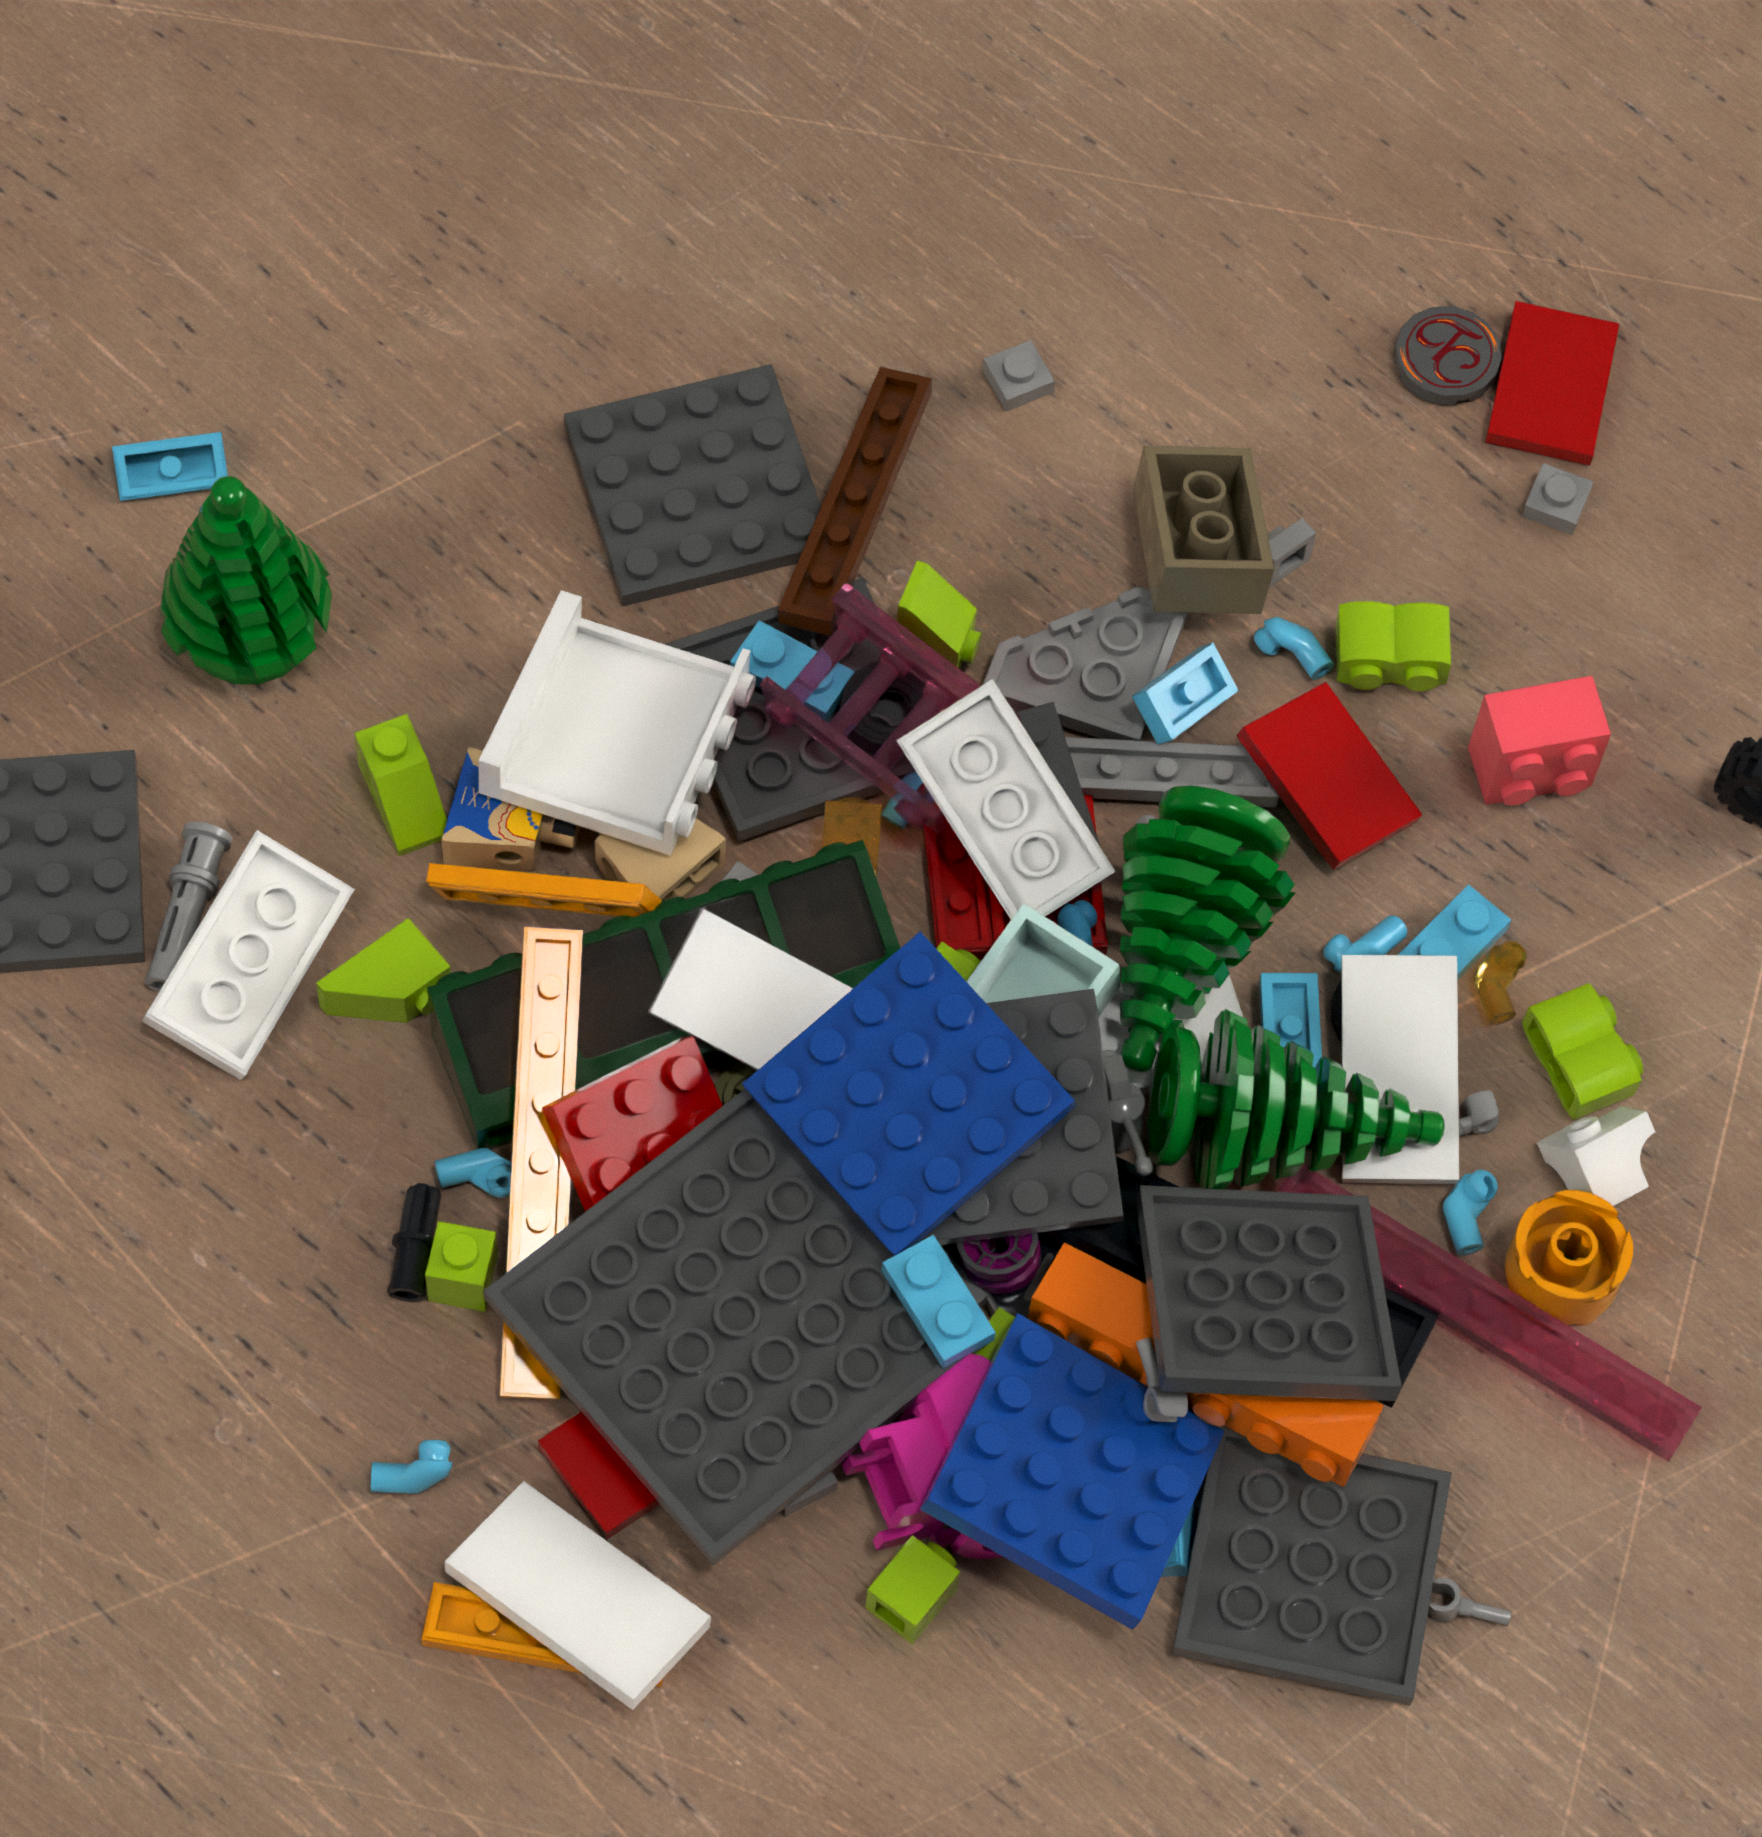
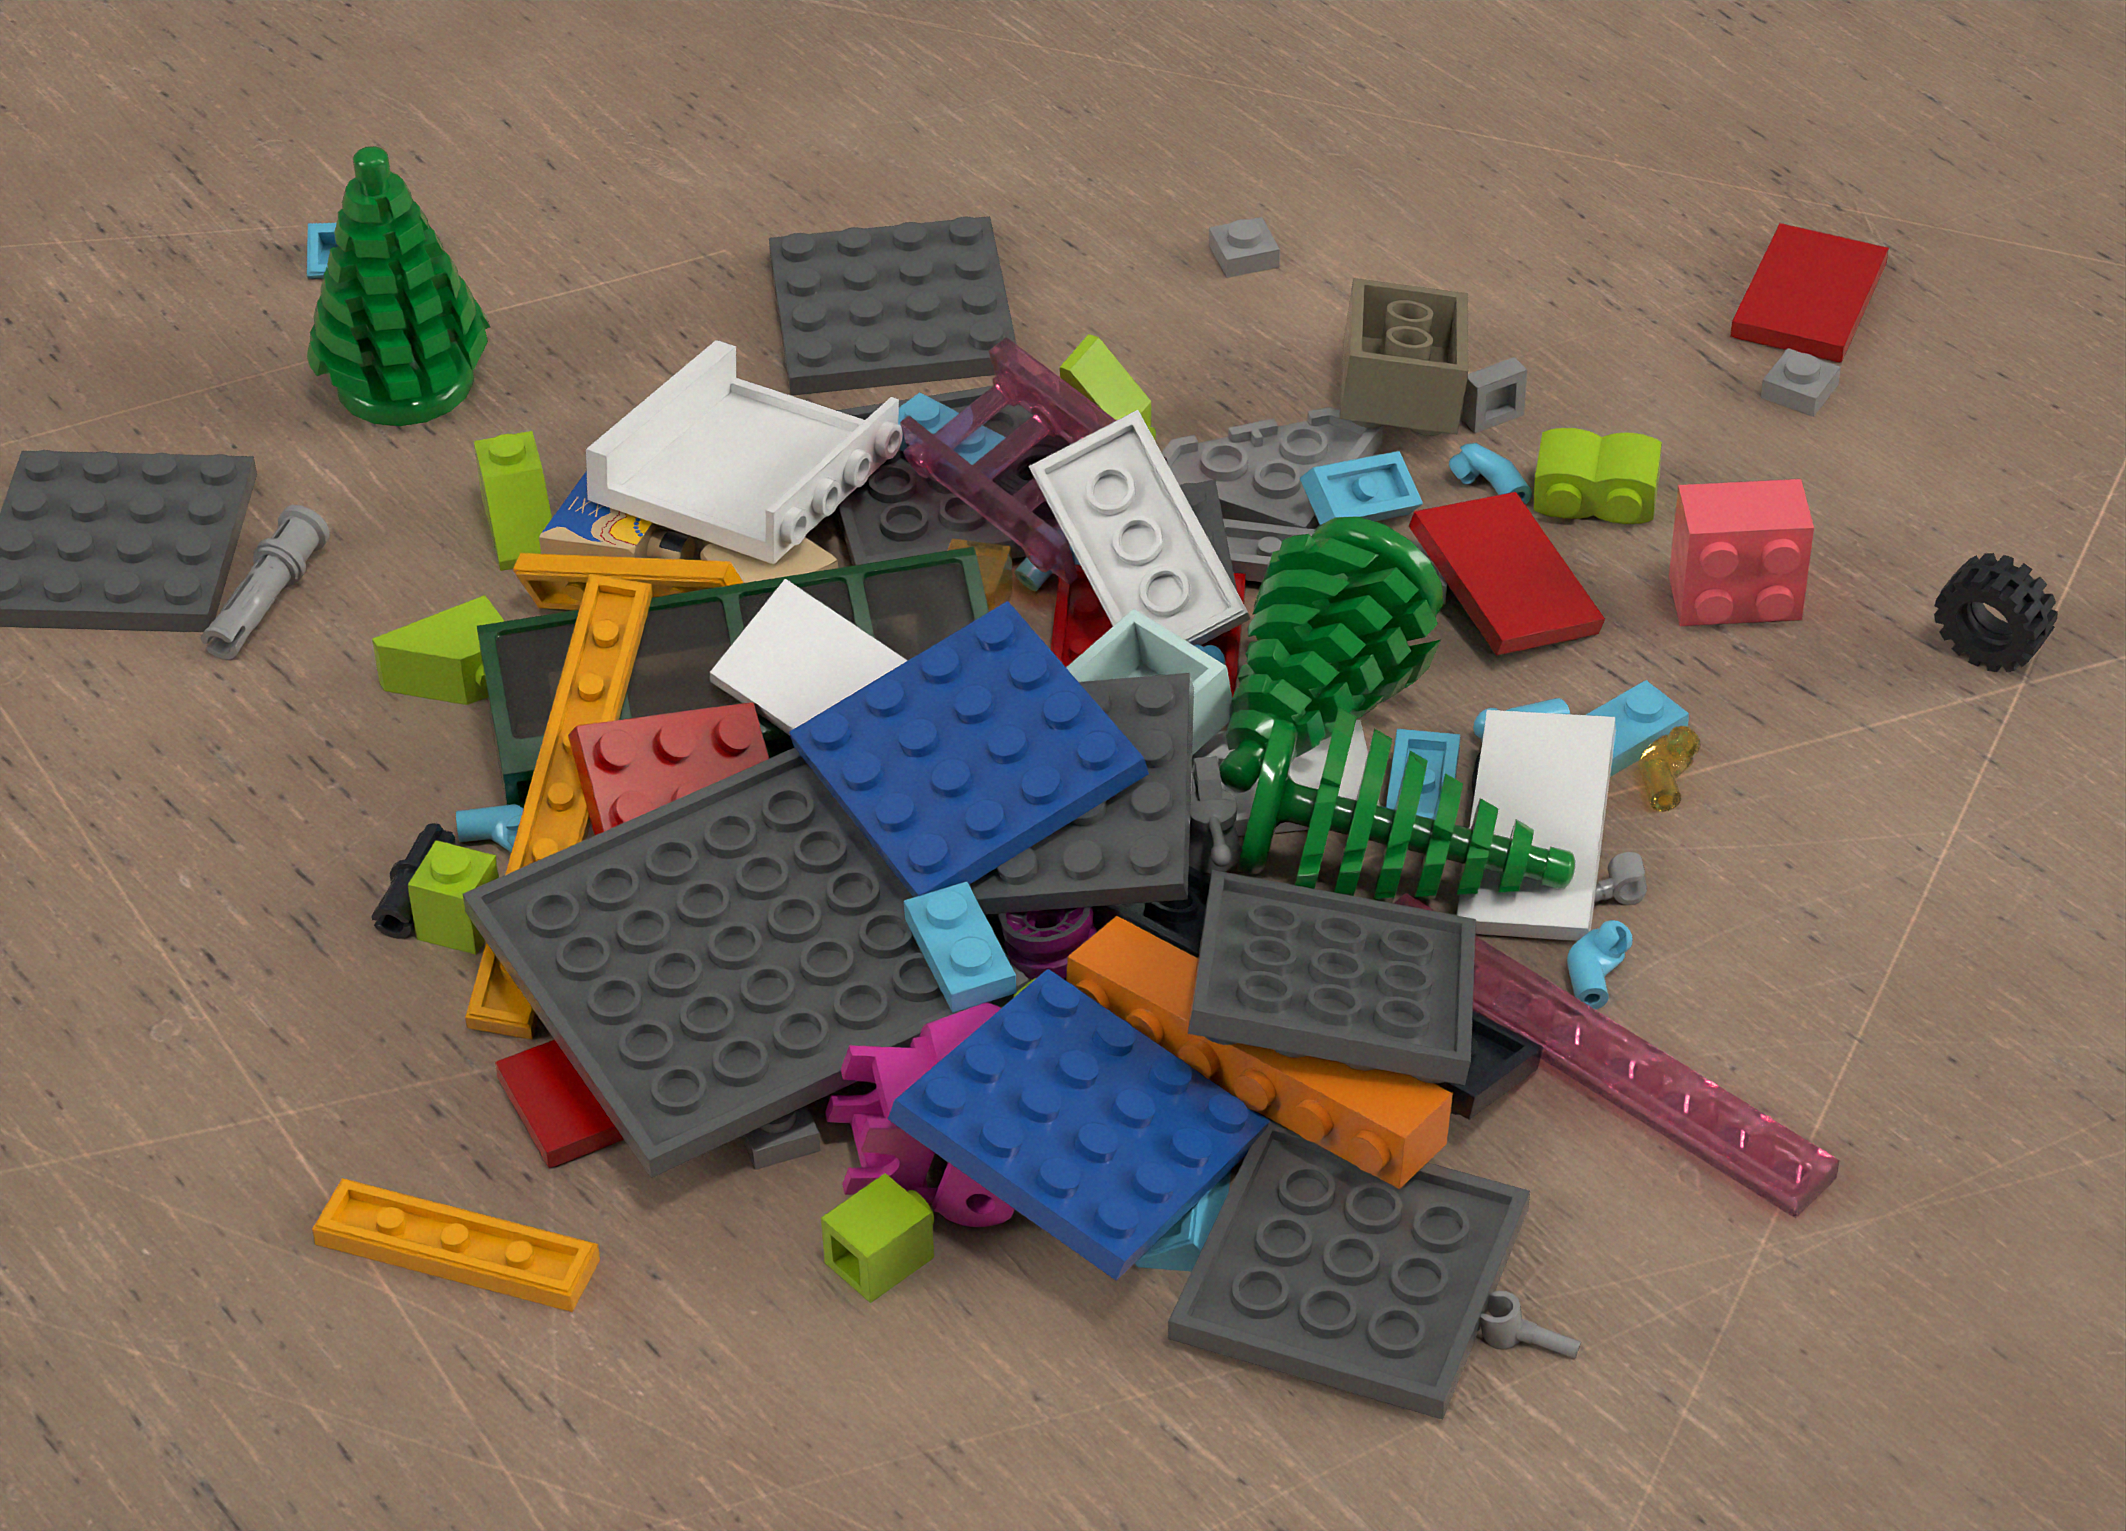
camera: 15 degrees right, 20 degrees down
(248, 955) = (312, 624): white tile -> none
(414, 1476) = (355, 1080): medium azure arm -> none
(578, 1595) = (497, 1200): white tile -> none
(855, 499) = (1051, 307): reddish brown plate -> none
(1157, 1404) = (1194, 1064): light grey hand -> none
(1447, 355) = (1700, 263): dark grey tile -> none
(1574, 1226) = (1703, 1000): light orange brick -> none
(1582, 1050) = (1751, 830): lime brick -> none
(1601, 1153) = (1752, 918): white brick -> none

